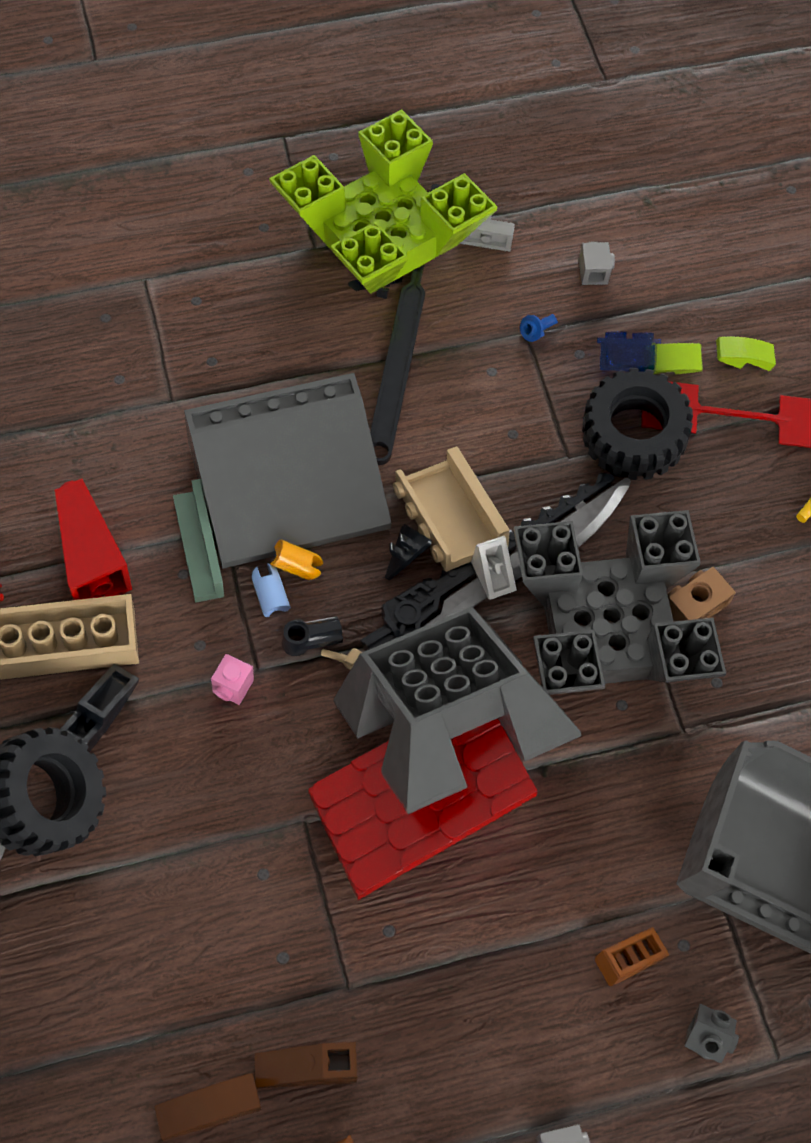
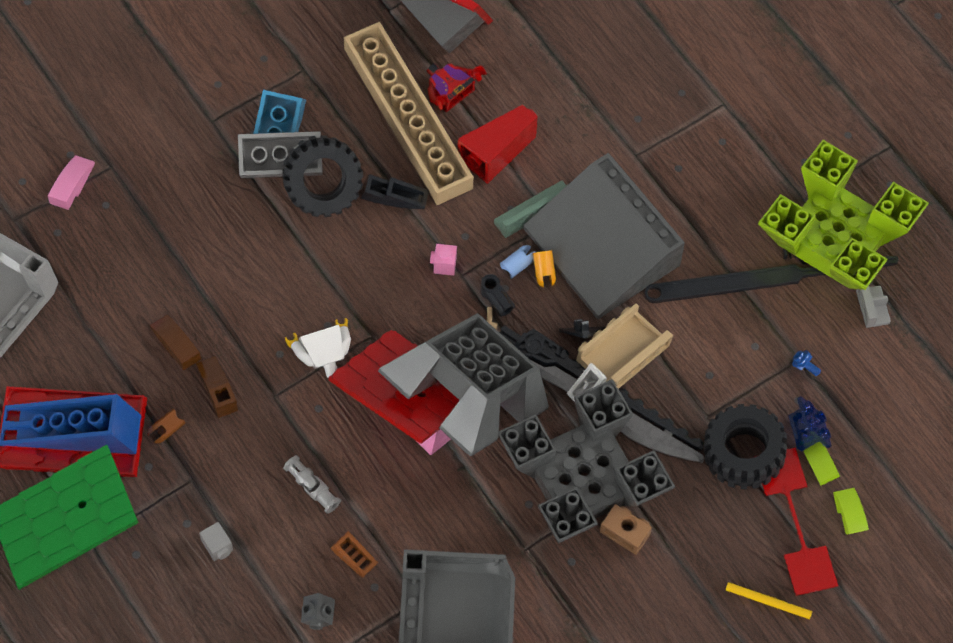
camera: 75 degrees right, 0 degrees up
(305, 889) = (323, 347): none -> white torso
(509, 980) = (310, 483): none -> light grey piece
(595, 263) = (879, 385): light grey brick -> none

